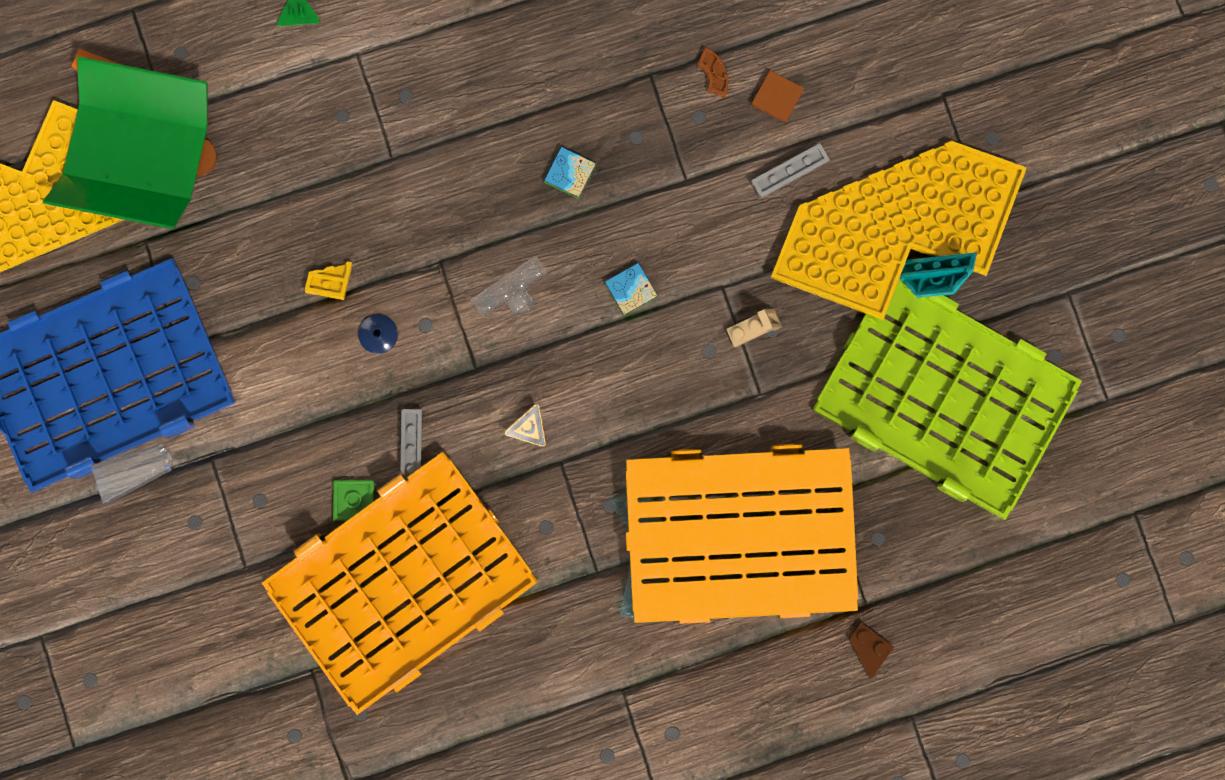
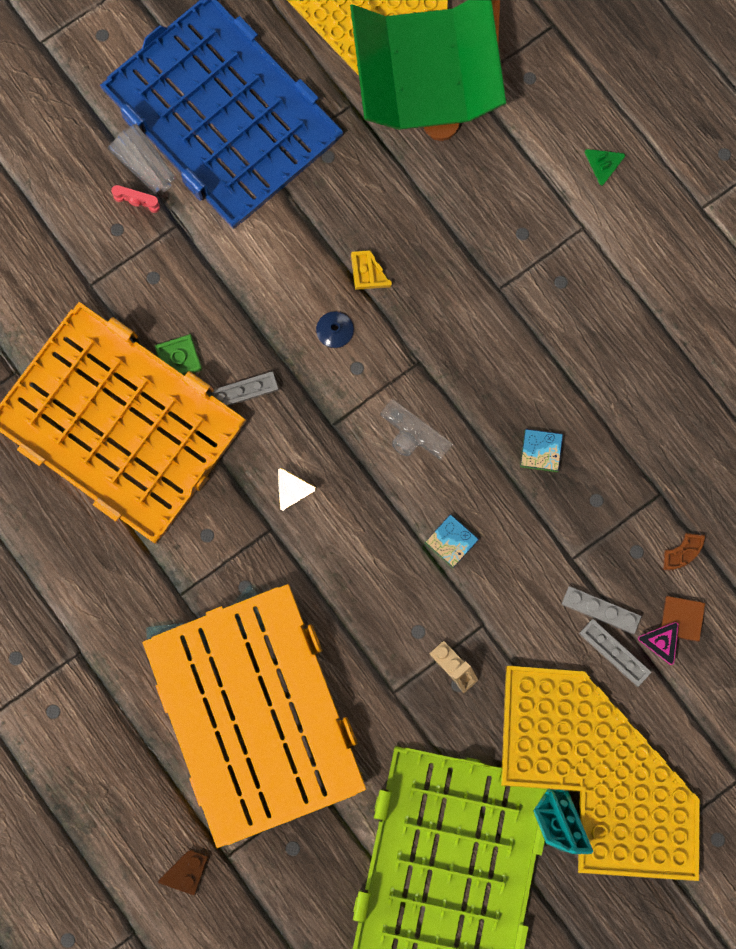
camera: 75 degrees right, 5 degrees down
(169, 491) = (135, 198): none -> coral plate
(744, 170) = (601, 610): none -> light grey plate
(794, 122) = (662, 642): none -> black piece

